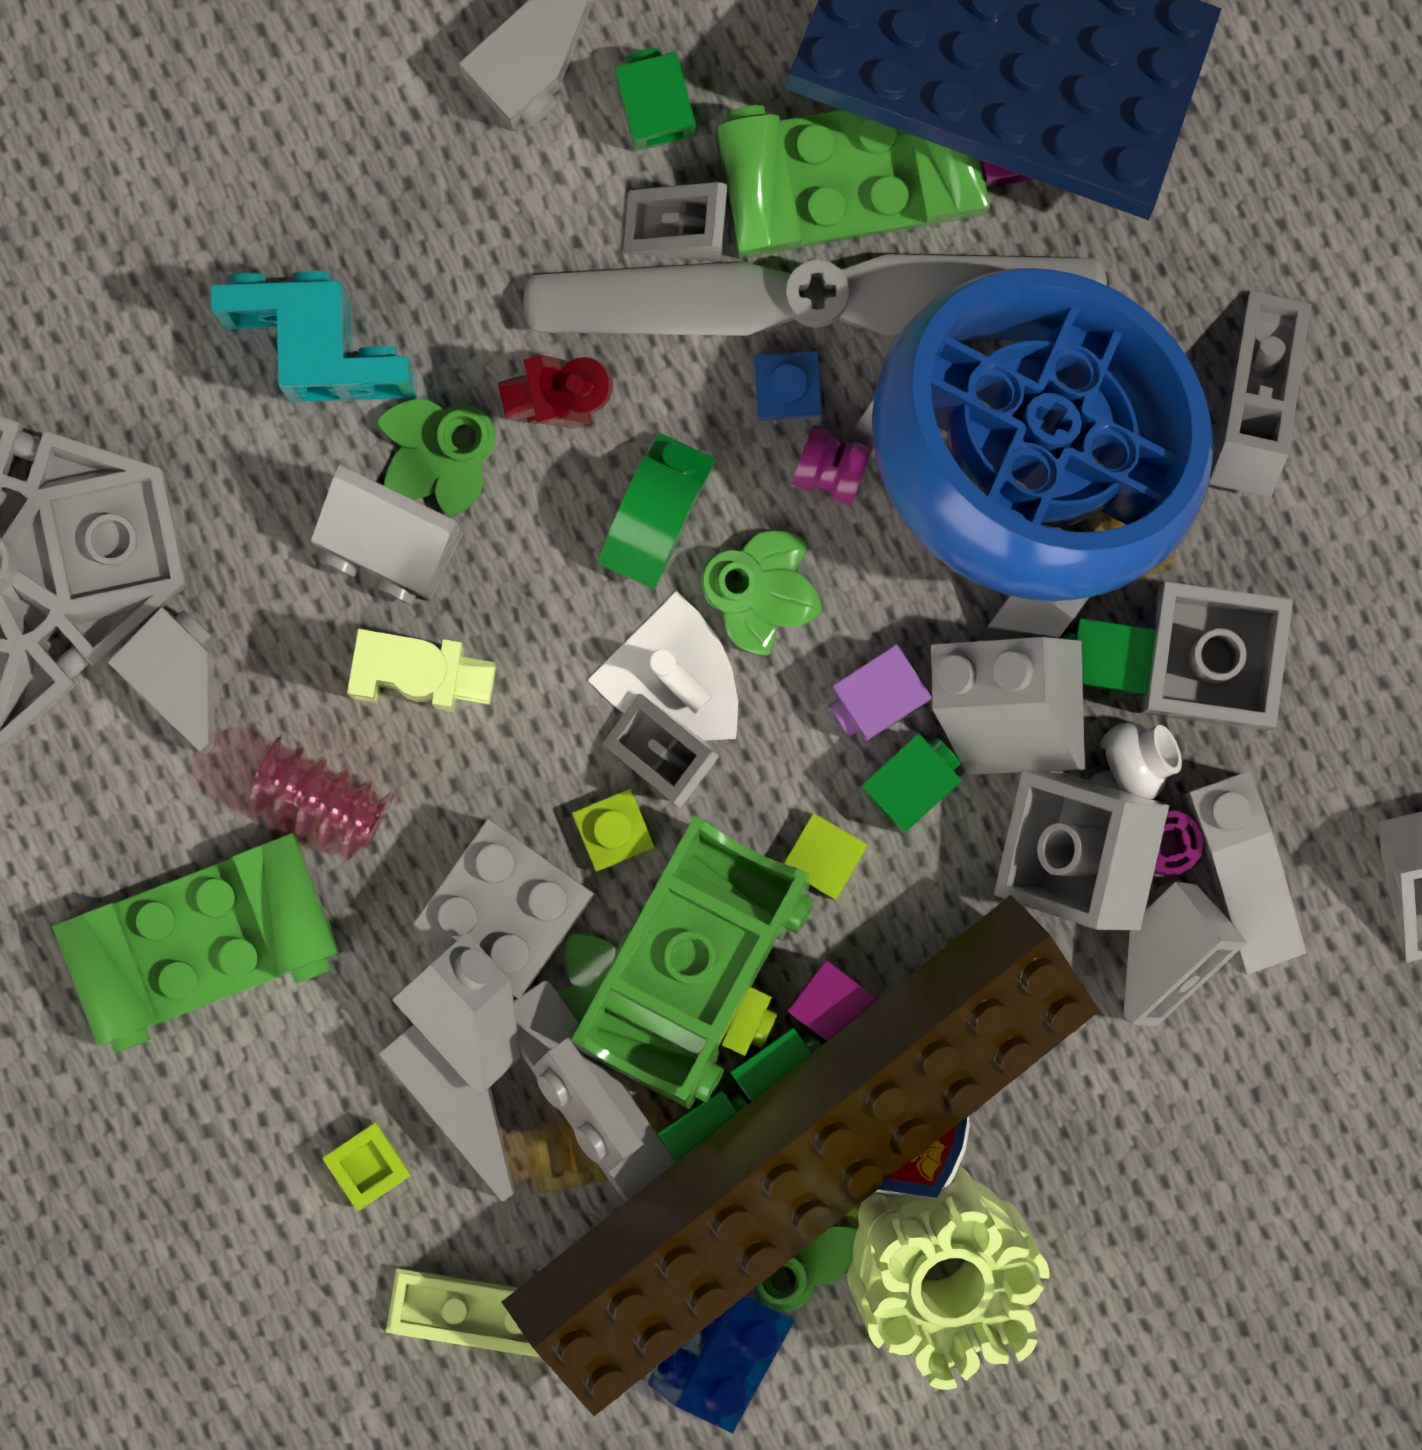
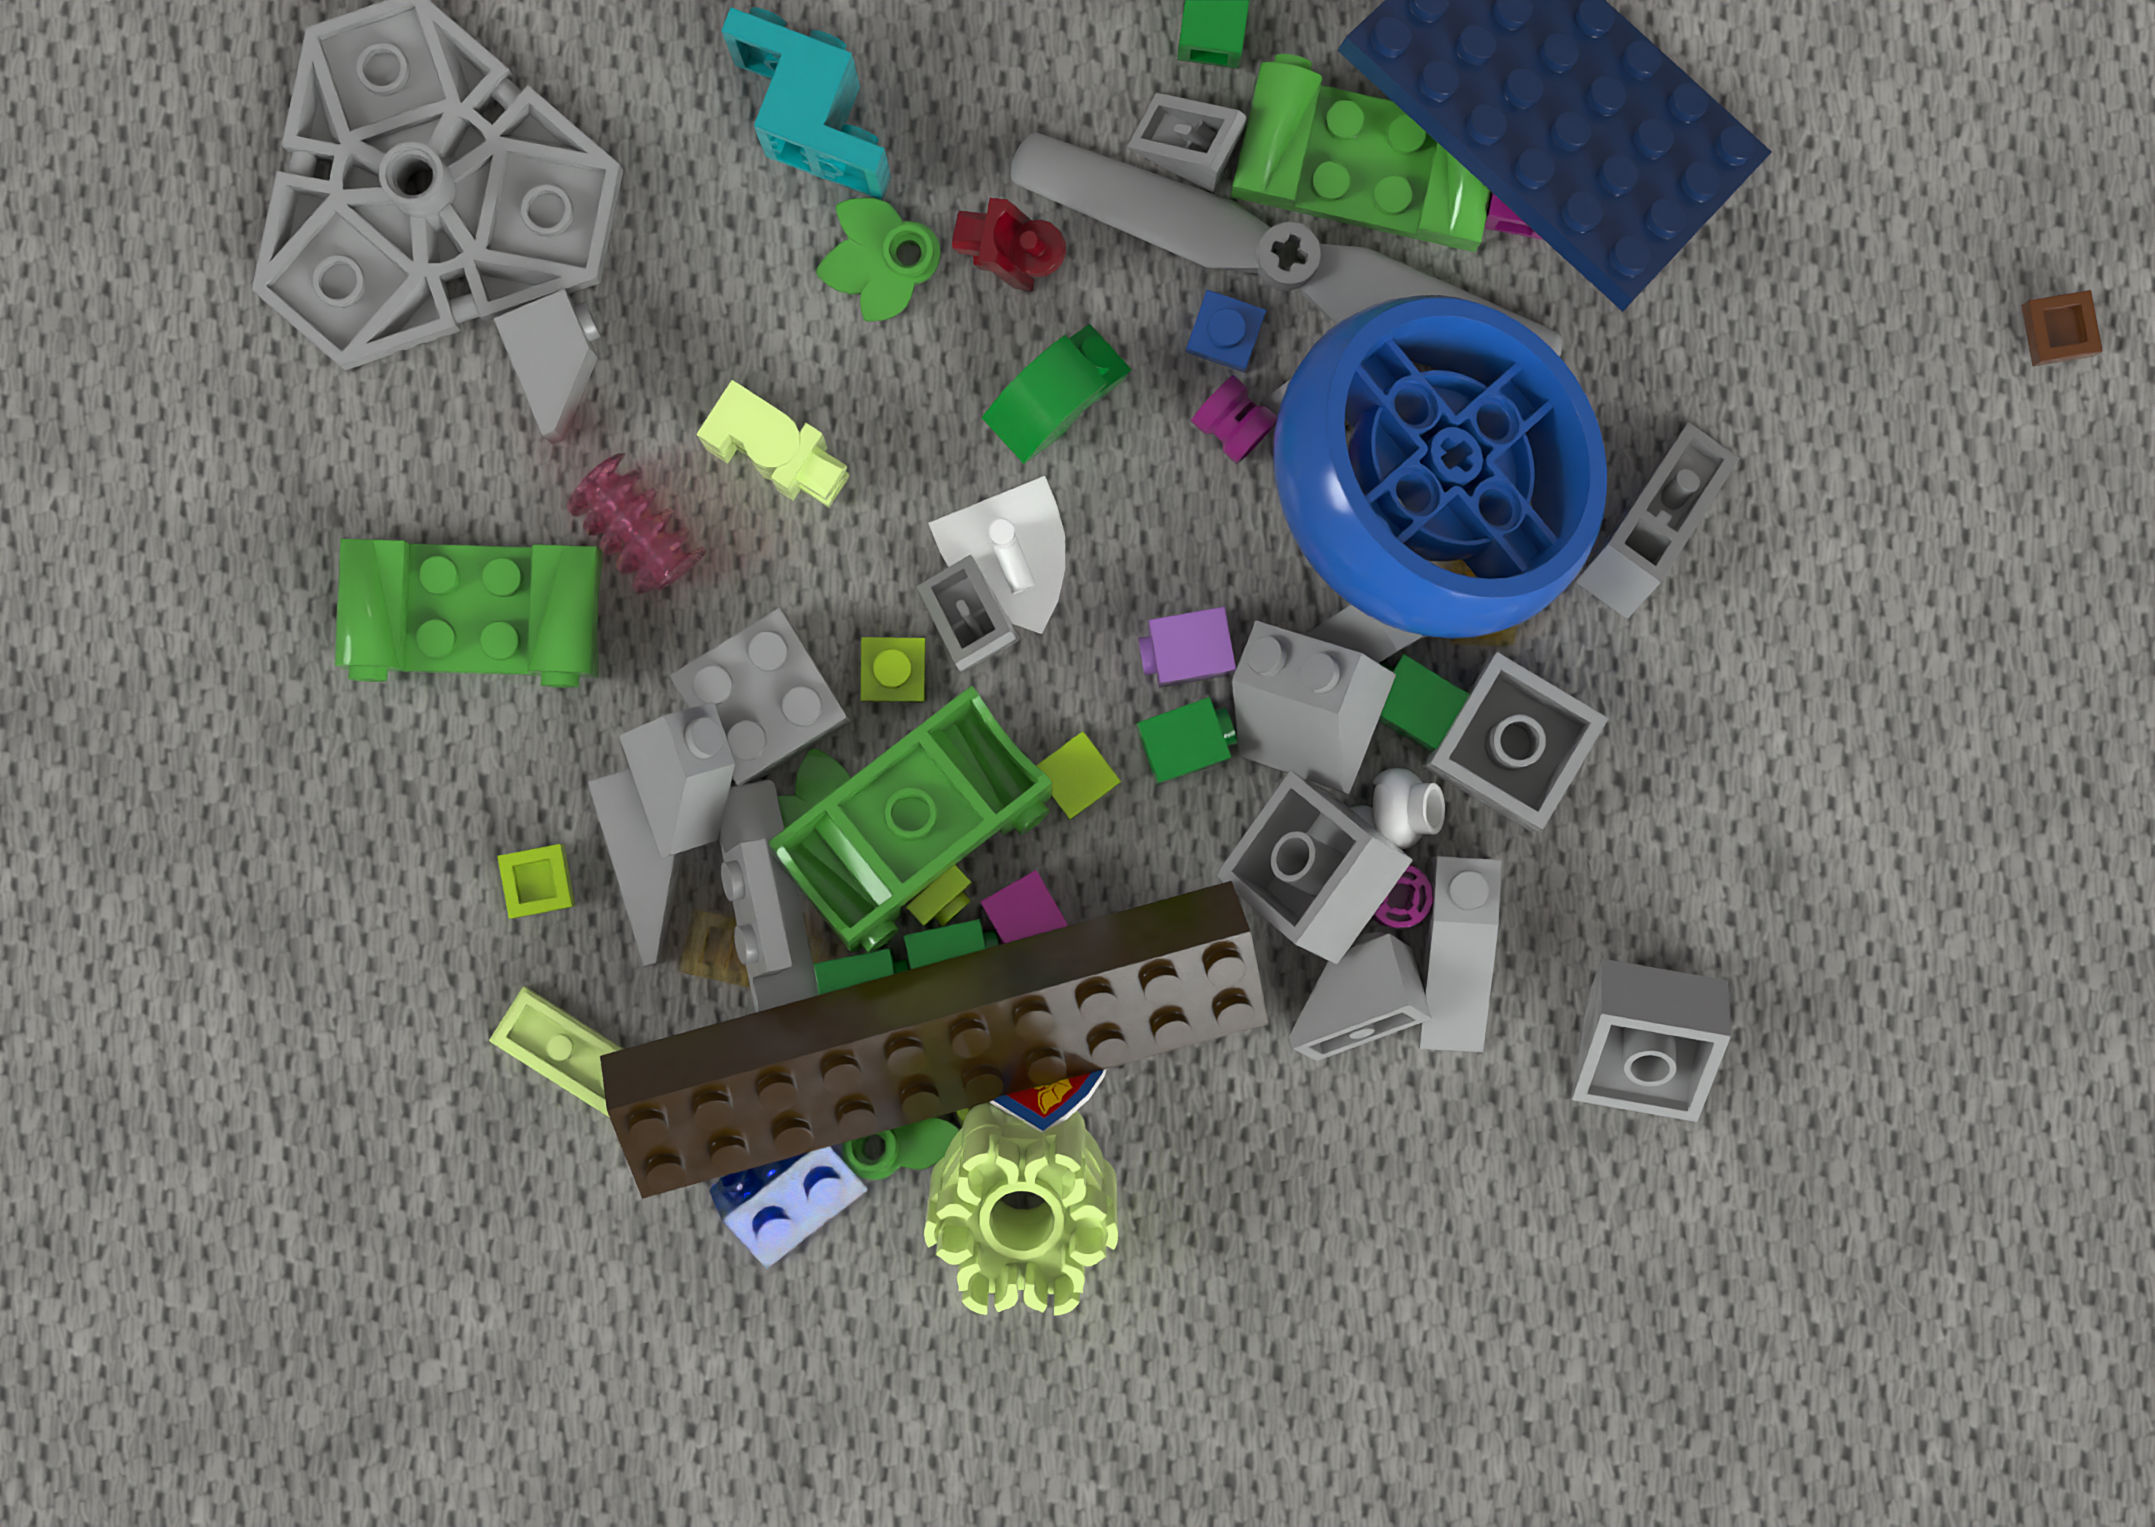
camera: 25 degrees right, 0 degrees up
(384, 535) = (797, 310): light grey slope -> none
(770, 591) = (1129, 513): bright green plate -> none

